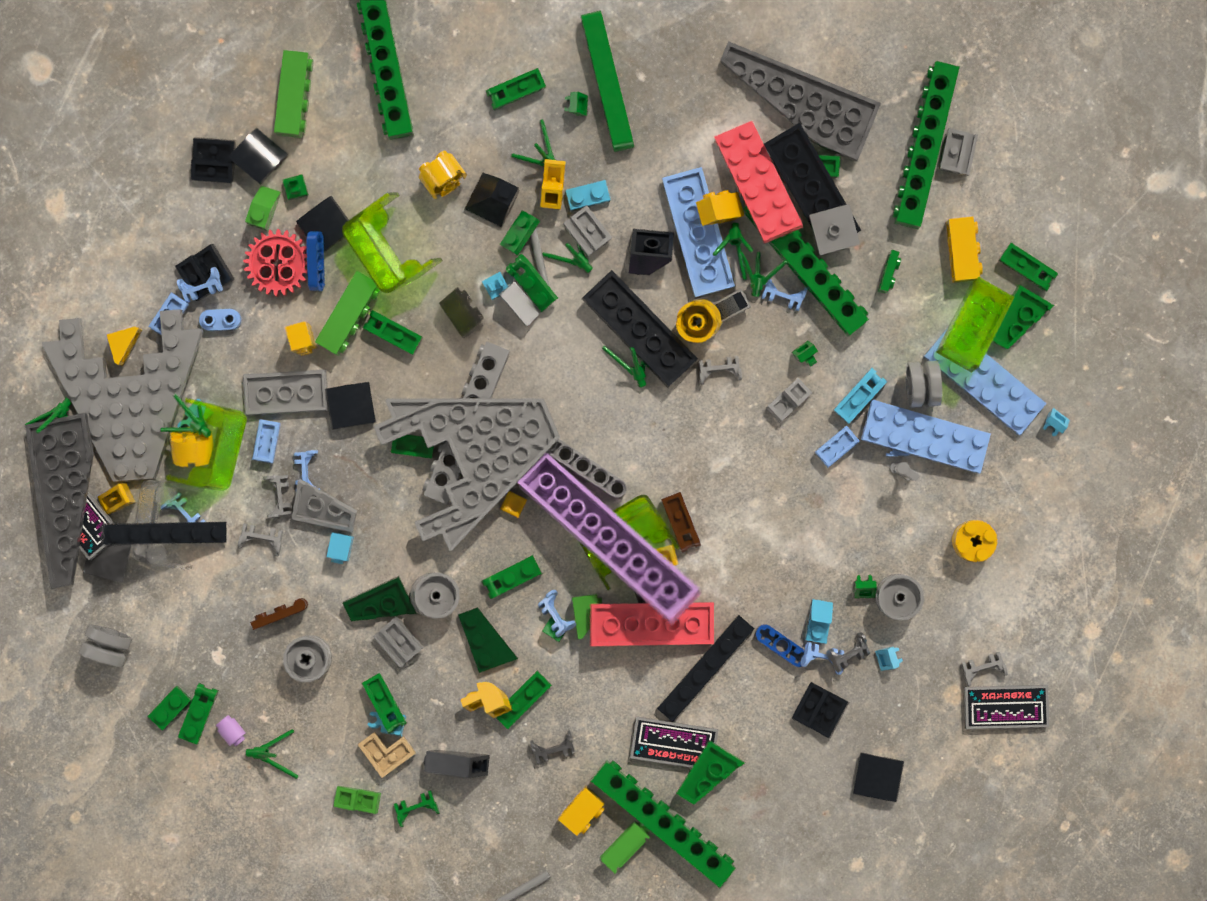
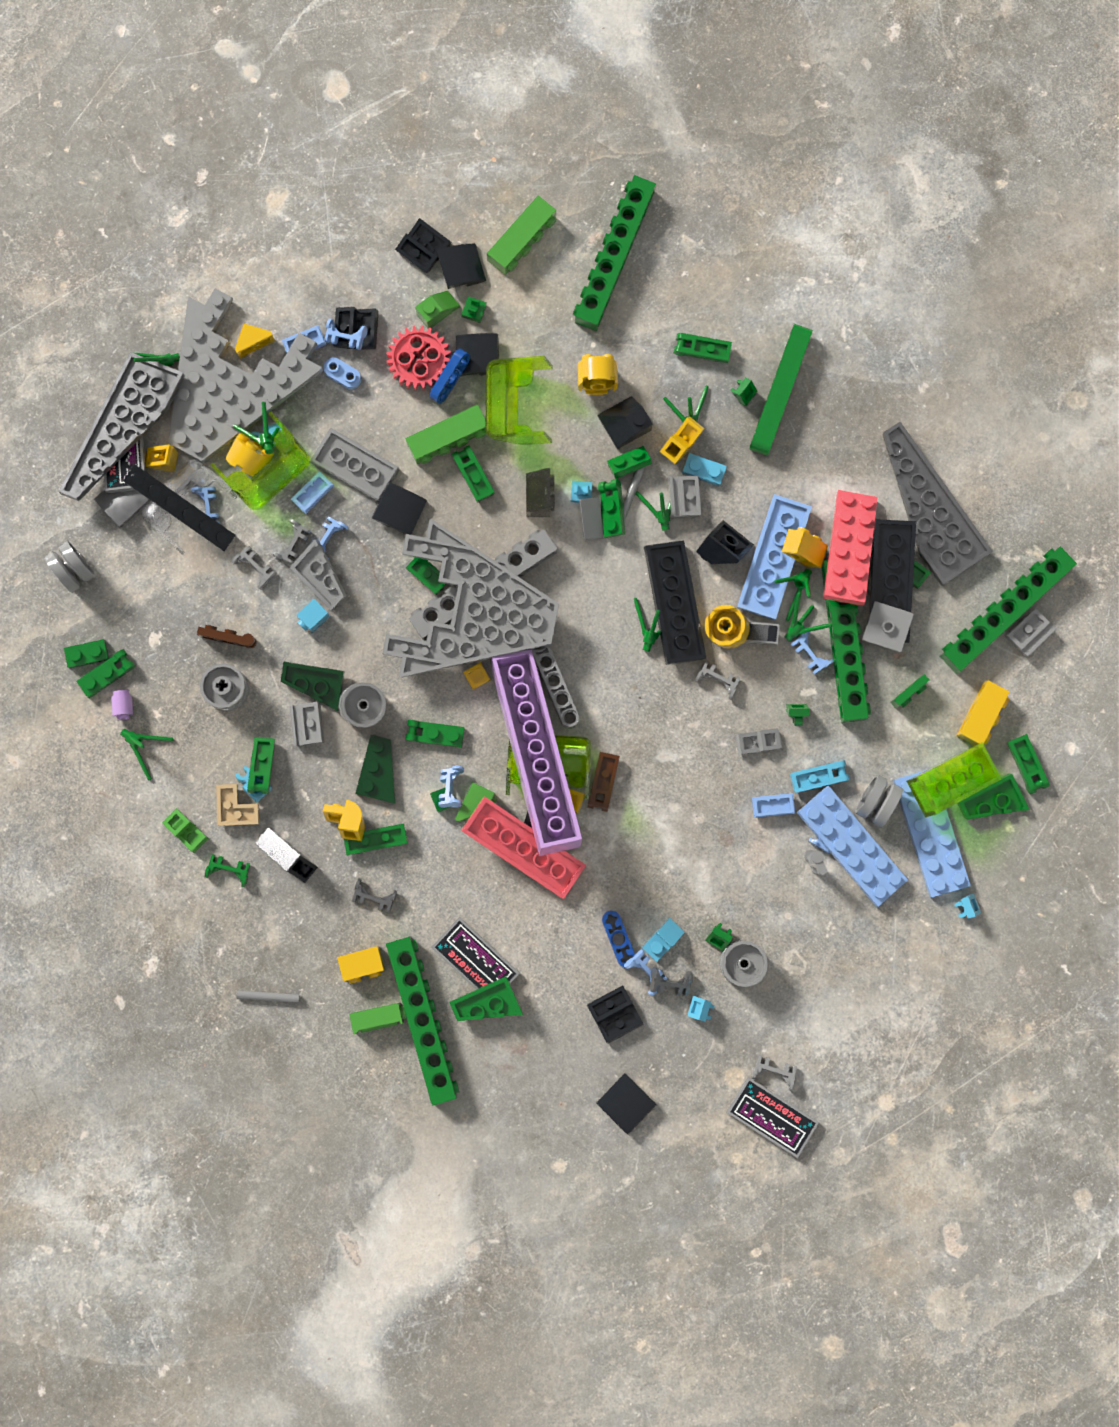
camera: 30 degrees right, 5 degrees down
(301, 338) = (396, 428): yellow brick -> none
(705, 668) = (543, 915): black plate -> none
(985, 536) = (848, 959): yellow brick -> none

